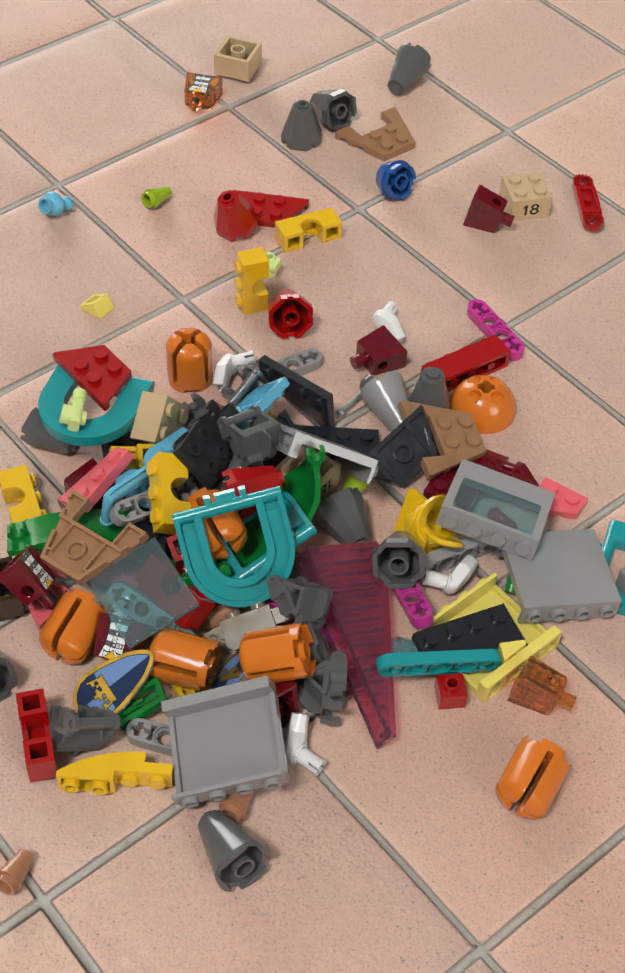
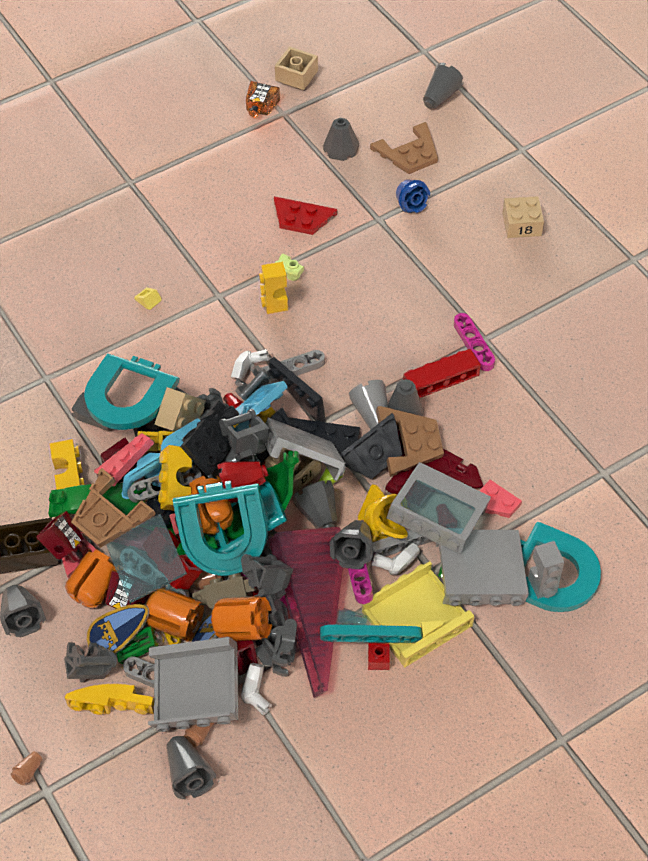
camera: 10 degrees right, 5 degrees up
(36, 735) = (54, 675): red arch -> none
(54, 204) = (123, 203): medium azure animal -> none
(73, 414) = (111, 404): yellowish green plate -> none
(95, 371) = (133, 366): red wing -> none
(155, 196) = (208, 199): lime cone -> none
(189, 360) = (213, 356): orange cylinder -> none
(234, 216) = (270, 224): red cone -> none
(290, 314) = (302, 318): red cone -> none
(321, 223) = (342, 233): yellow arch -> none
(334, 107) = (371, 122): dark grey cone -> none
(342, 411) = (332, 408): light grey hinge -> none
(379, 352) = (371, 357): dark red torso -> none
(389, 320) = (383, 330): white arm -> none
(474, 631) = (402, 610): black wing -> none
(487, 211) = (486, 230): dark red torso -> none
(488, 402) = (453, 410): orange piece -> none
(539, 771) = (436, 741): orange cylinder -> none
(540, 688) = (449, 661): clear orange torso -> none
(587, 202) = (577, 225): red plate -> none

